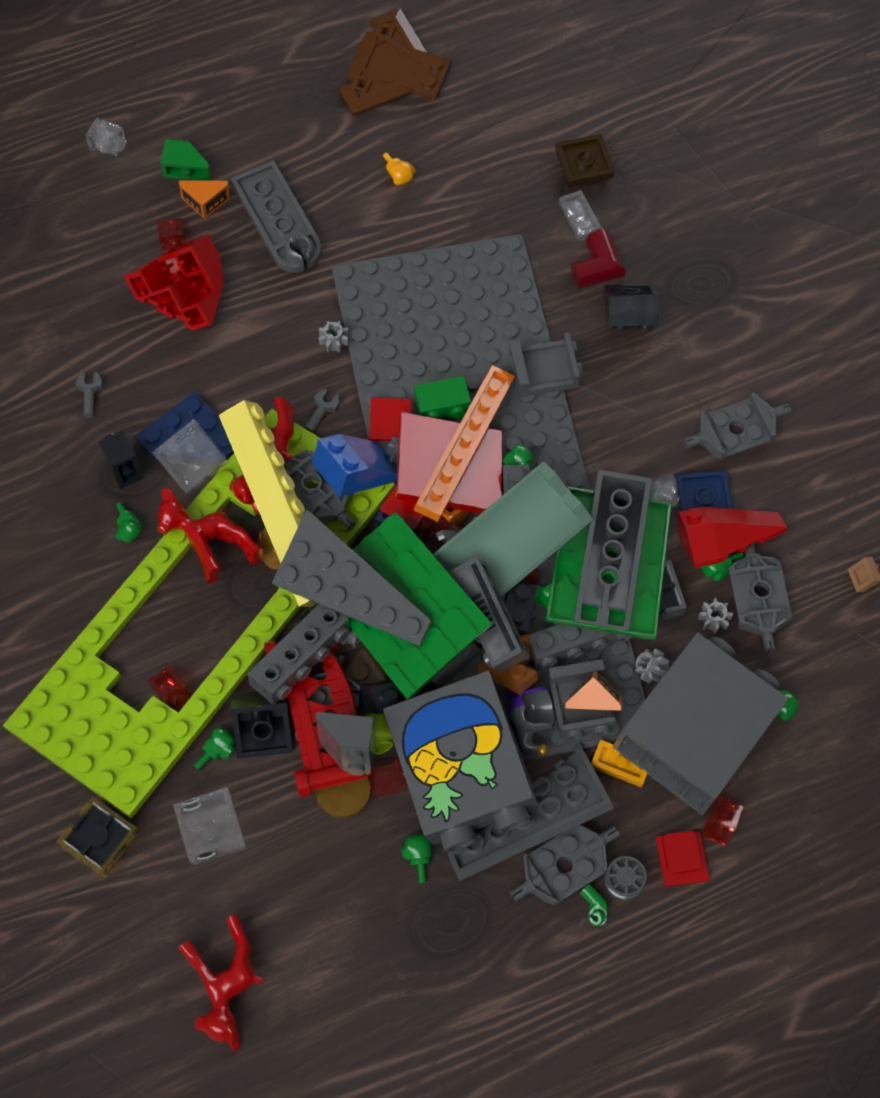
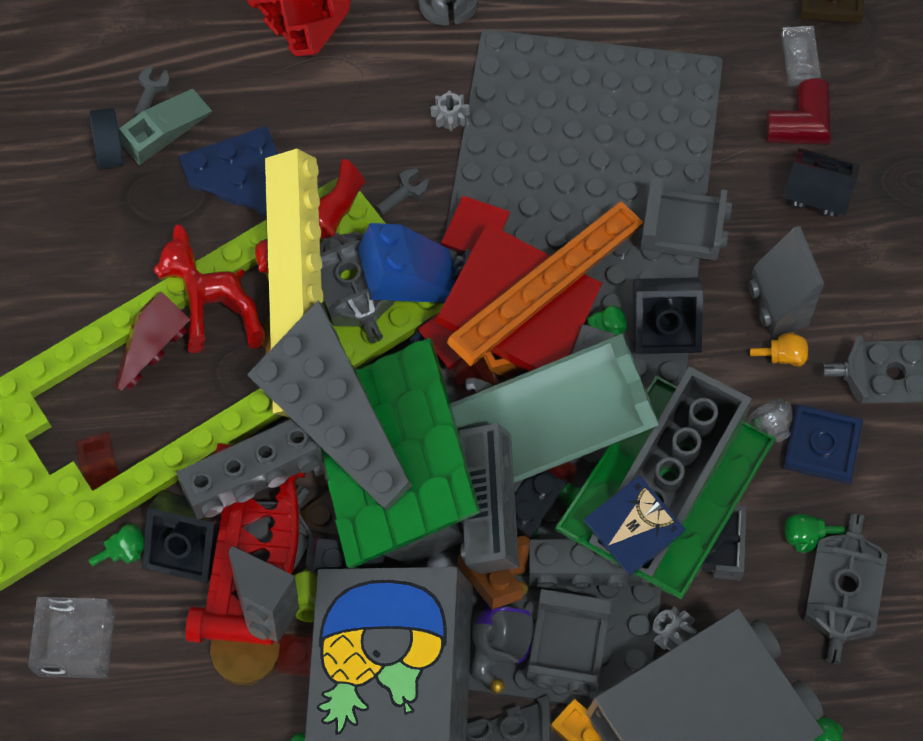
camera: 25 degrees right, 0 degrees up
(73, 439) = (106, 138): none -> black wheel
(113, 414) = (162, 125): none -> sand green slope
(121, 459) = (148, 176): black brick -> none
(128, 525) = (130, 256): green piece -> none
(172, 579) = (150, 331): none -> dark red slope
(191, 456) = (226, 198): clear brick -> none
(442, 398) = (545, 222): green brick -> none
(560, 438) = (667, 315): none -> black slope
(594, 694) = (586, 642): orange slope -> none
(603, 597) = (634, 525): none -> dark blue tile
(638, 388) = (786, 285): none -> dark grey slope
(653, 436) = (787, 349): none -> light orange piece
(715, 533) = (819, 492): red wedge -> none
(719, 621) = (780, 586): light grey gear -> none

